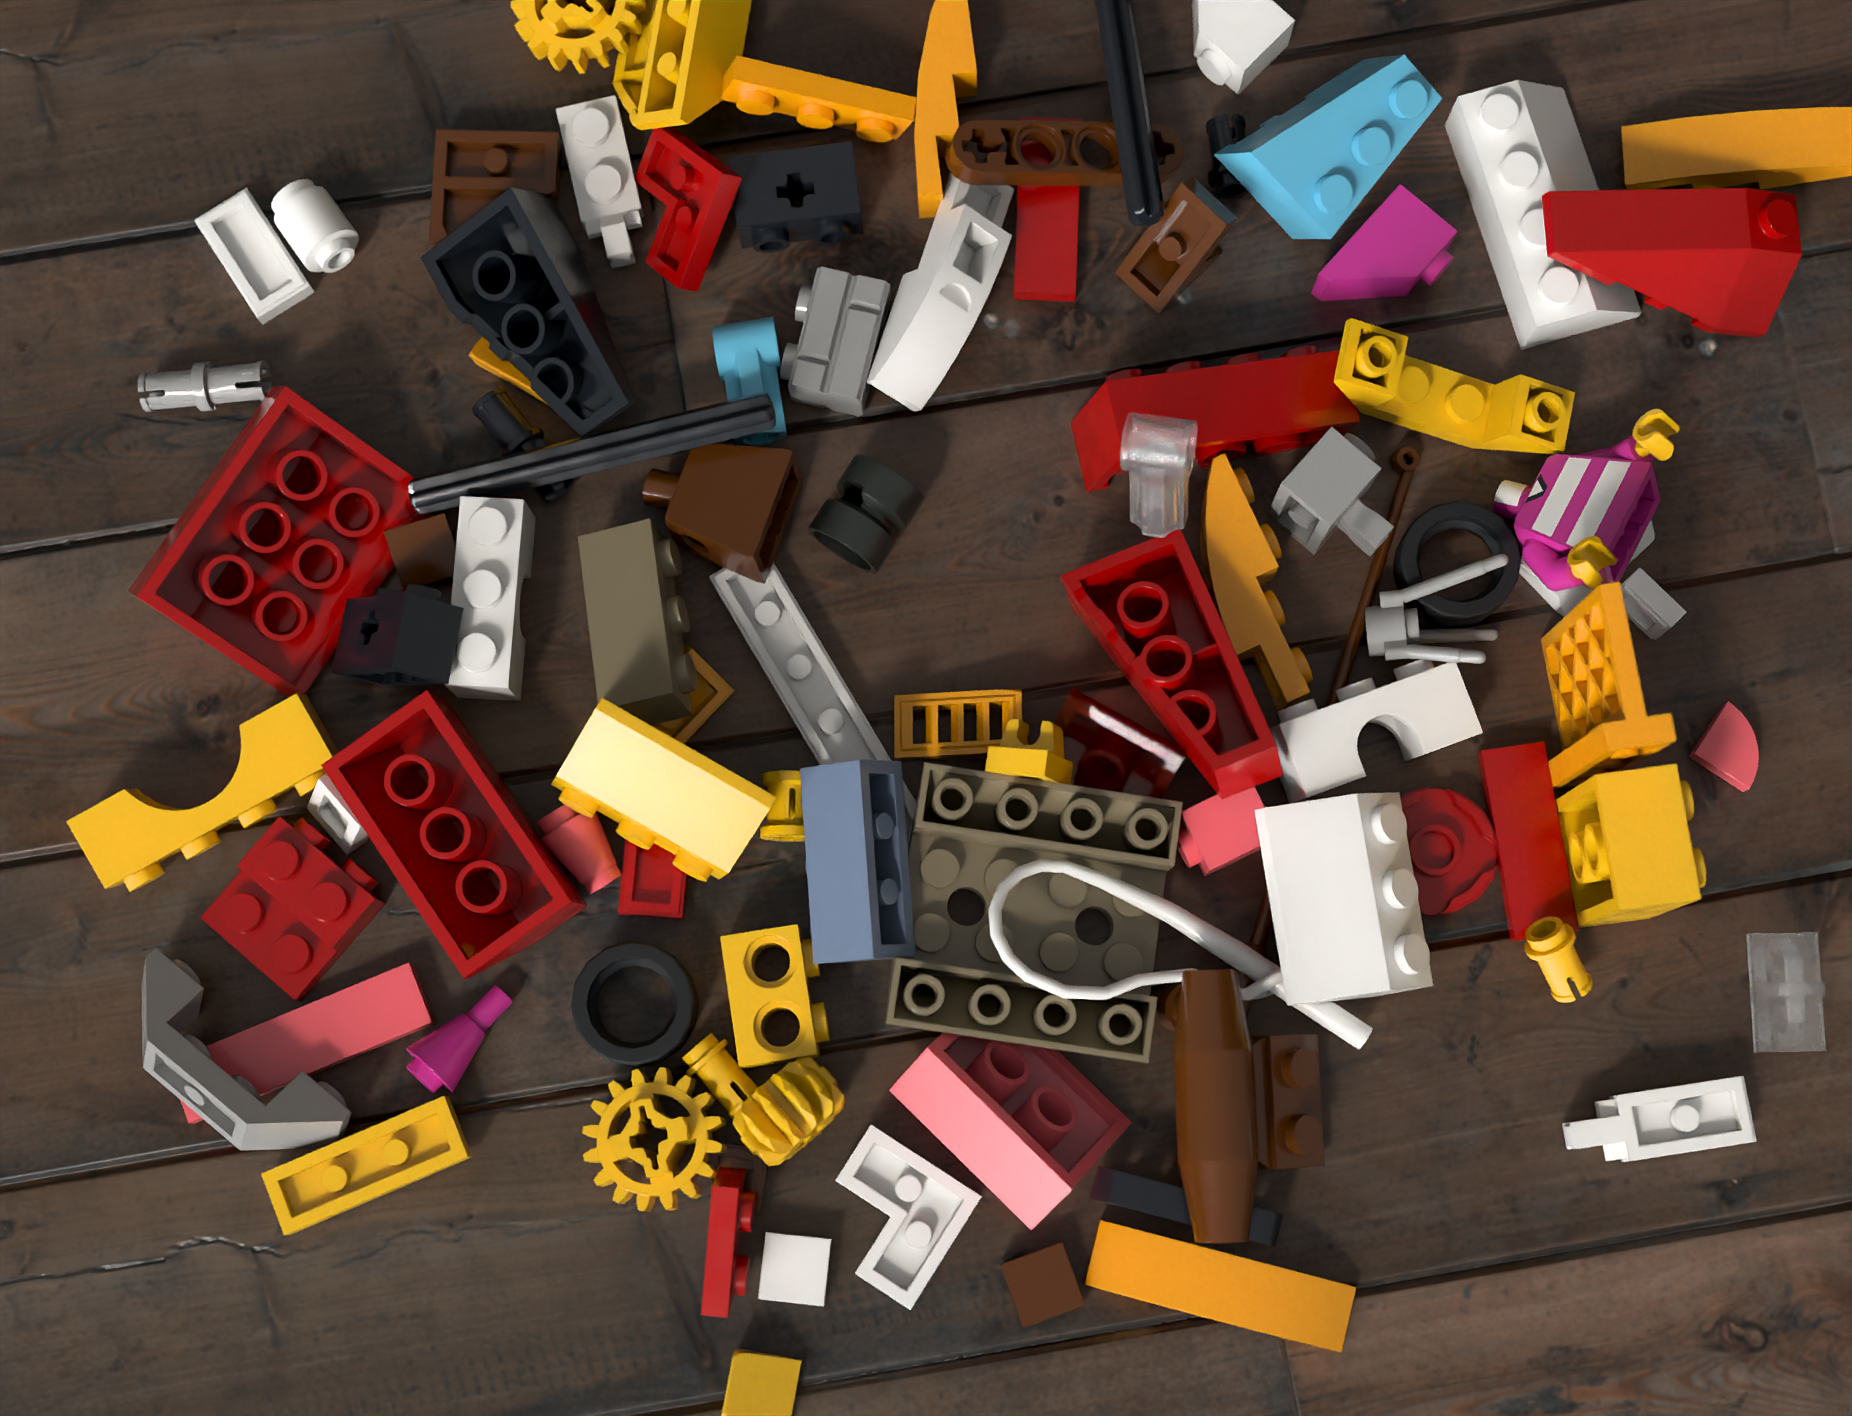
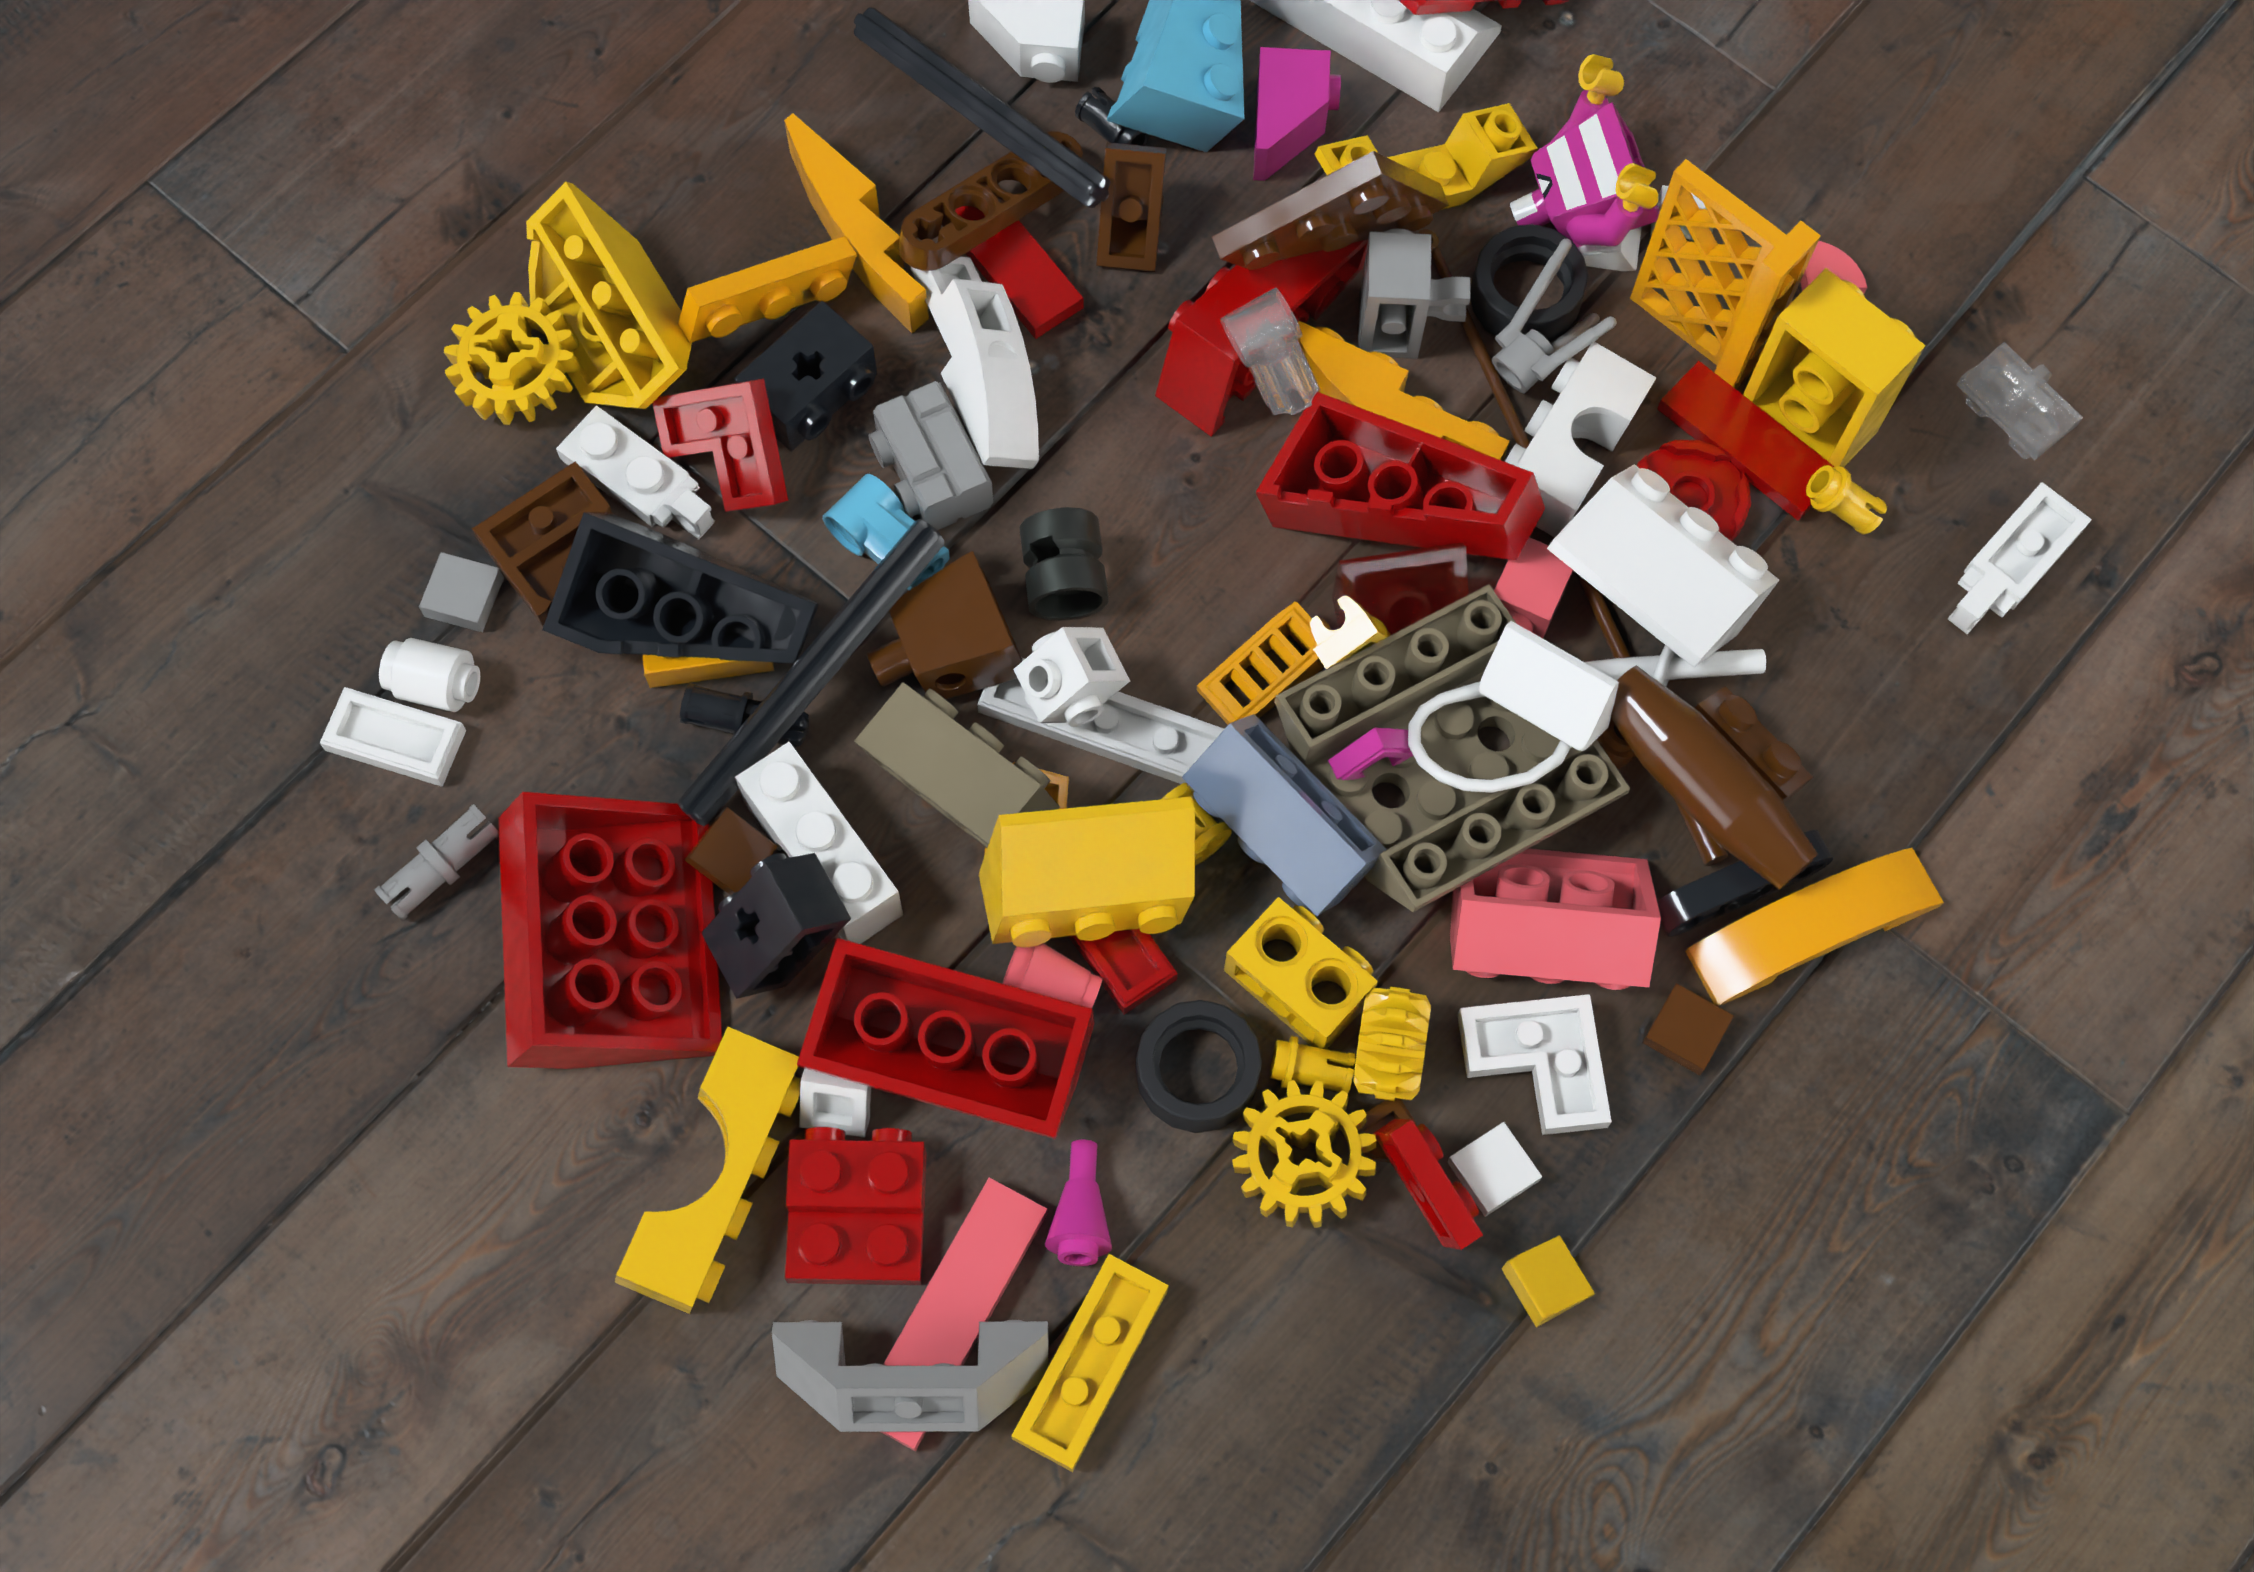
camera: 45 degrees left, 10 degrees down
(394, 174) = (461, 592): none -> light grey tile
(784, 615) = (1071, 675): none -> white brick
(964, 866) = (1369, 749): none -> dark pink tile
(1147, 930) = (1549, 687): none -> white slope
(1310, 392) = (1334, 213): none -> reddish brown plate

